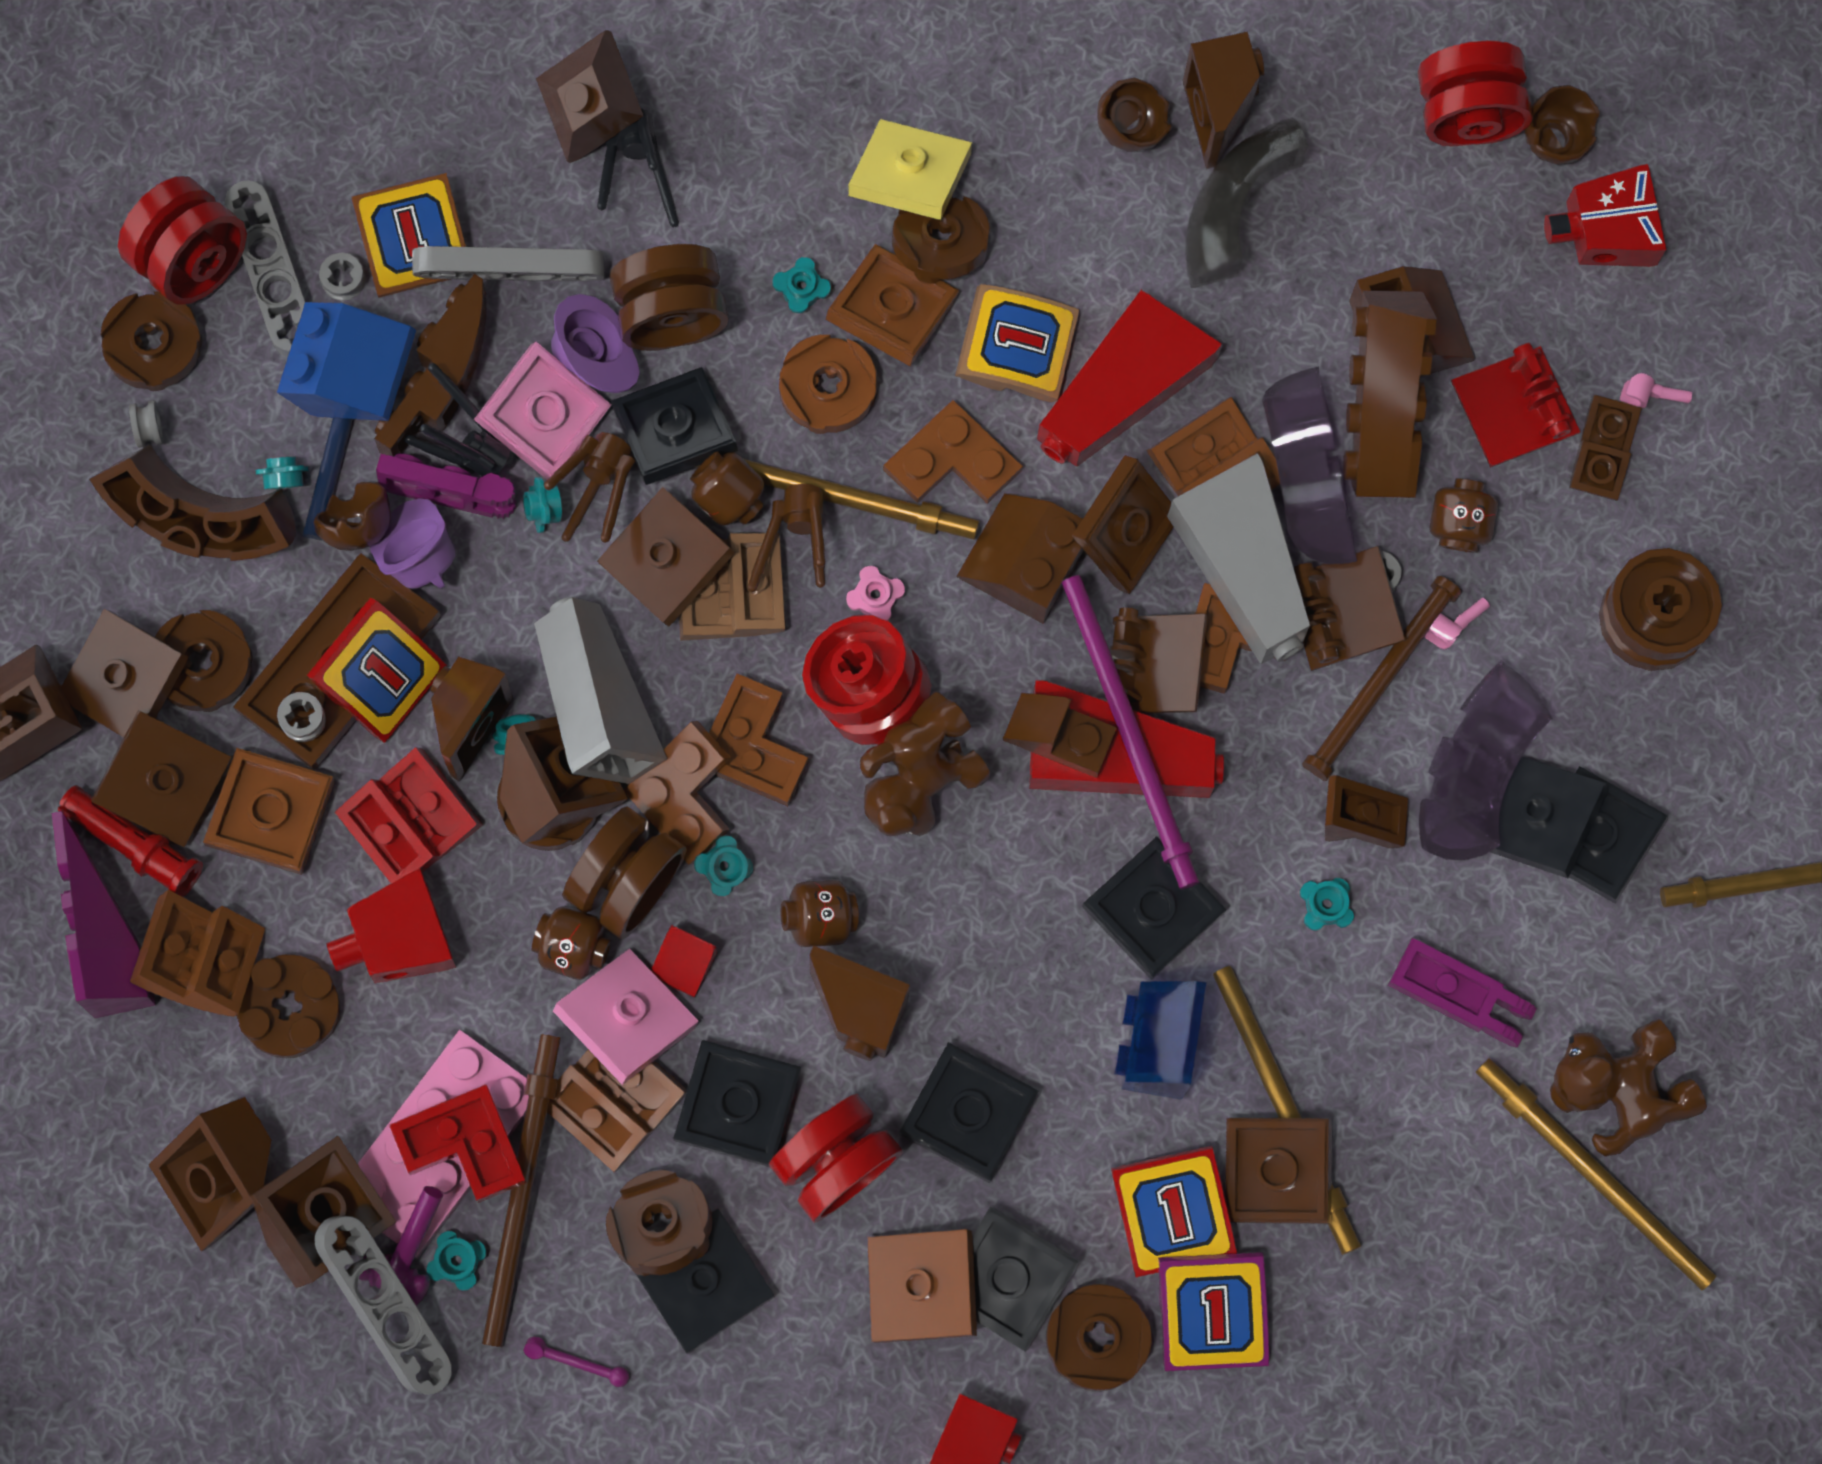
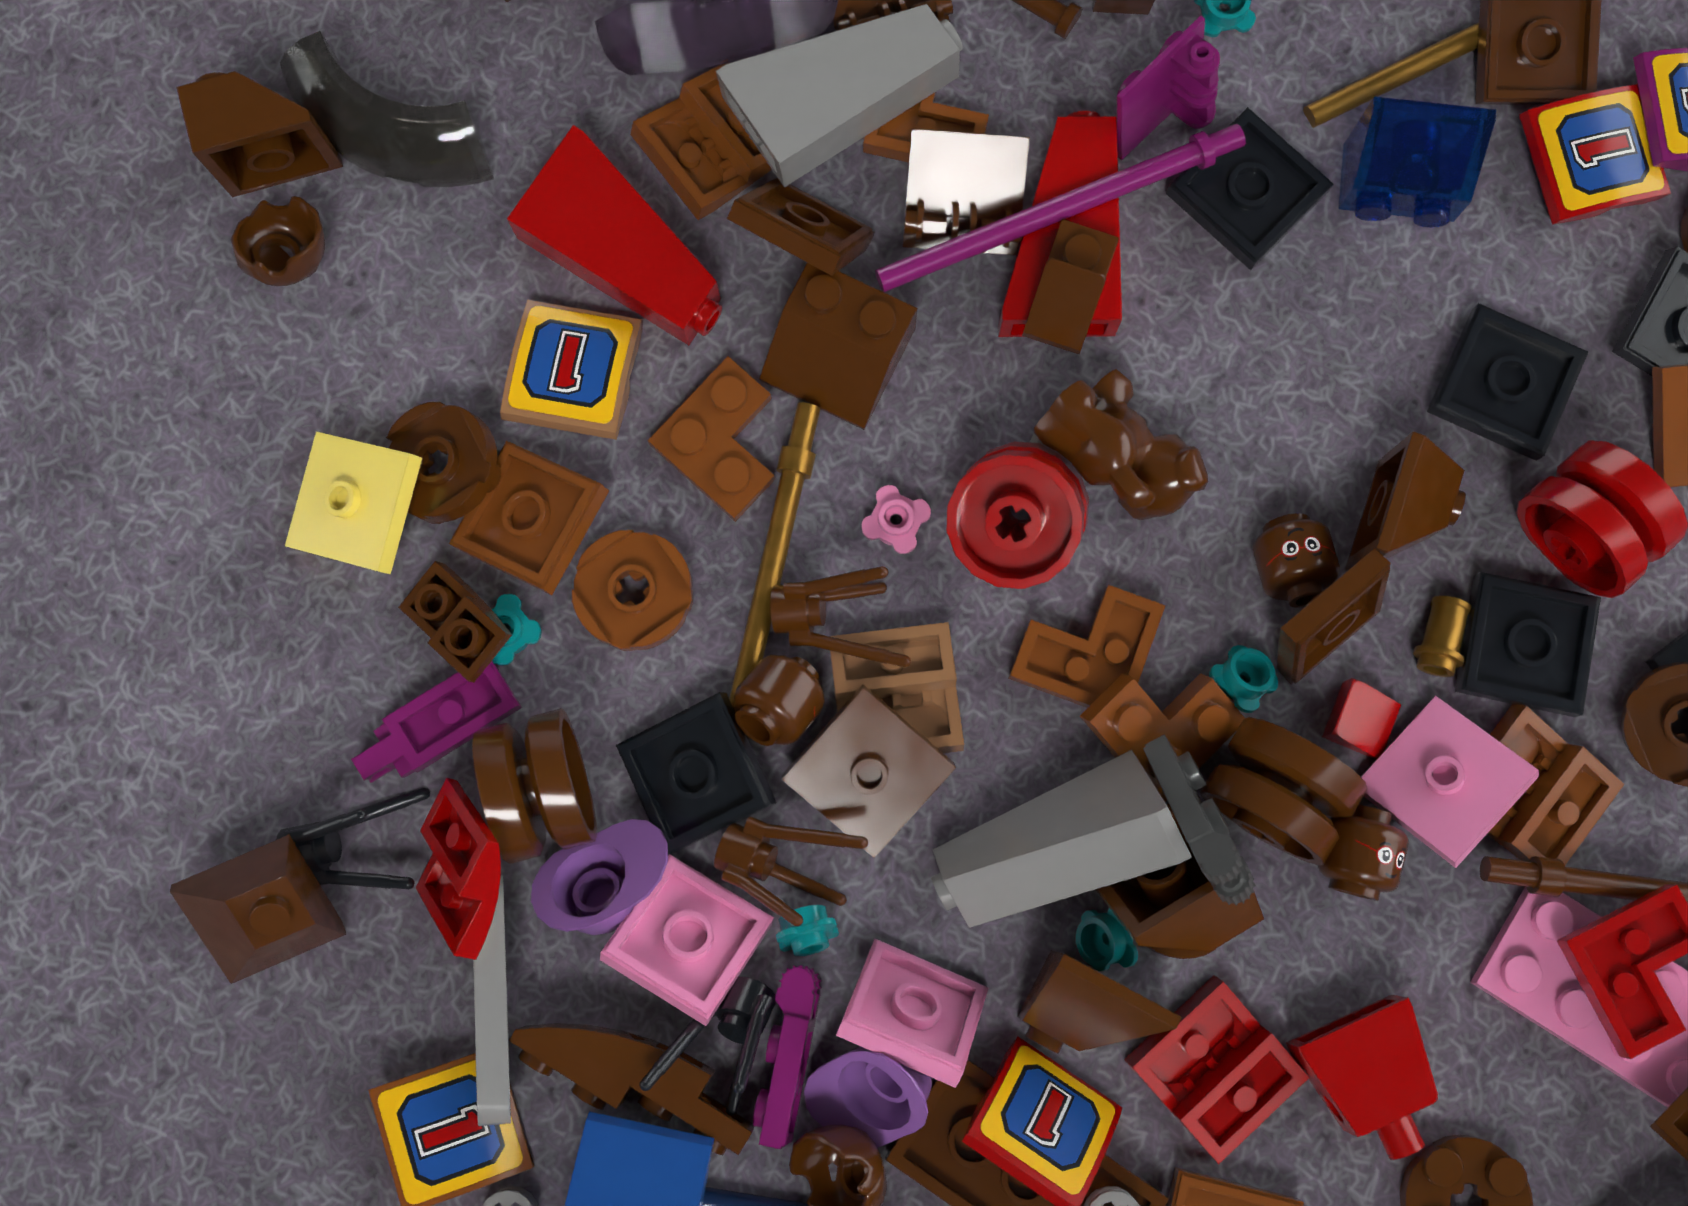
camera: 85 degrees left, 5 degrees up
(472, 576) = (914, 1013): none -> bright pink plate
(602, 782) = (1200, 822): none -> dark grey hinge
(605, 239) = (463, 872): none -> red slope
(729, 233) = (437, 724): none -> magenta hinge
(748, 1033) = (1443, 637): none -> pearl gold pin
(764, 927) = (1332, 617): none -> reddish brown plate
(809, 247) = (456, 621): none -> reddish brown slope
(1249, 839) = (1176, 82): none -> magenta hinge

